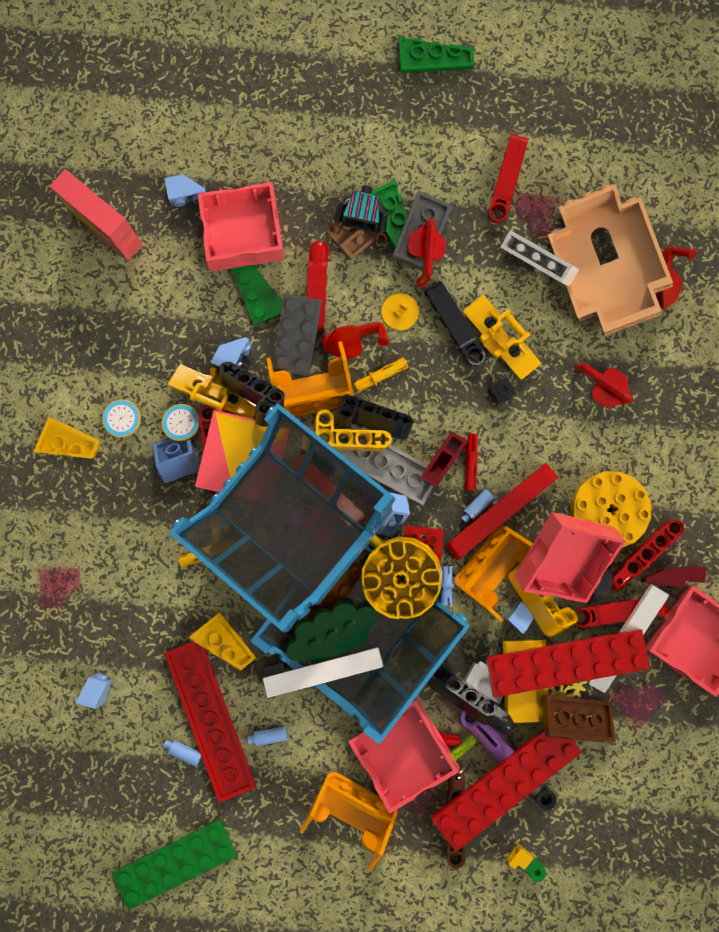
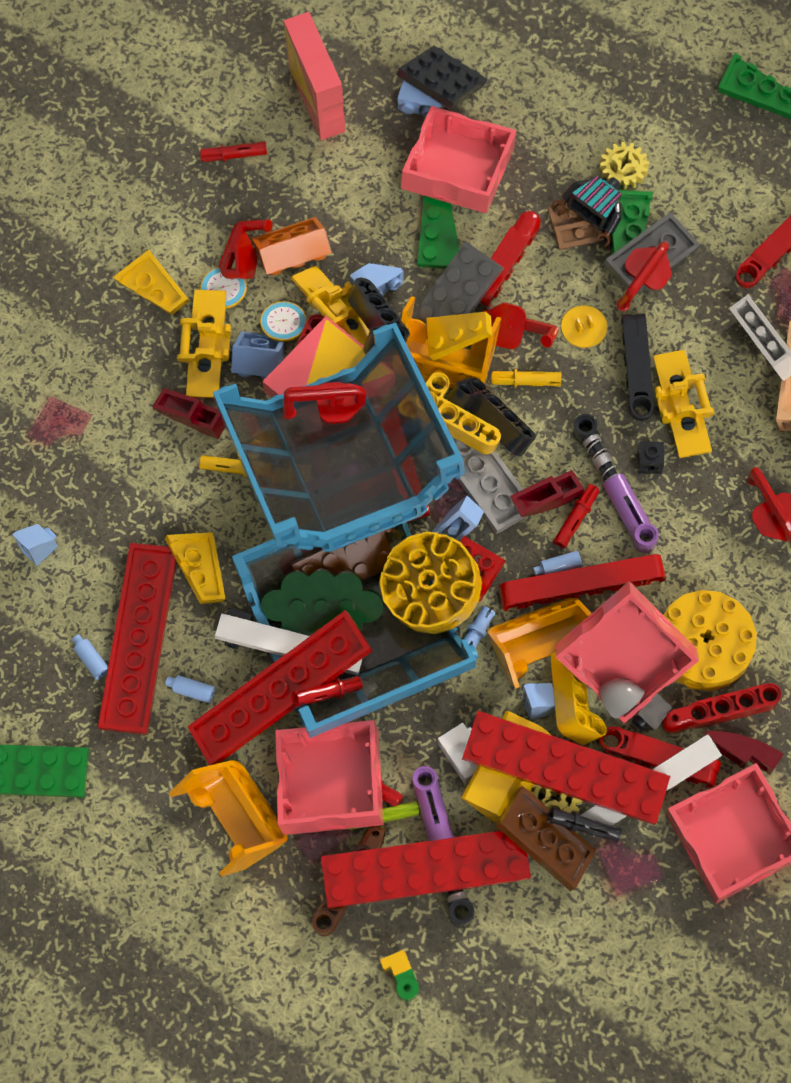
camera: 30 degrees right, 15 degrees down
(67, 304) = (233, 151): none -> red axle
(118, 383) = (241, 250): none -> red piece
(139, 467) = (214, 343): none -> yellow piece
(147, 528) = (190, 412): none -> dark red slope
(153, 358) = (292, 246): none -> orange slope
(192, 165) = (441, 77): none -> black plate
(261, 481) = (334, 400): none -> red piece
(316, 371) = (456, 332): none -> yellow wing
(335, 710) = (269, 693): none -> red plate
(355, 169) = (633, 171): none -> light yellow gear
(372, 700) = (326, 691): none -> red axle
(473, 709) = (433, 754): black piece -> none
(488, 425) = (616, 486): none -> piece
(579, 589) = (620, 696): none -> light grey helmet
(592, 696) = (574, 822): none -> black pin

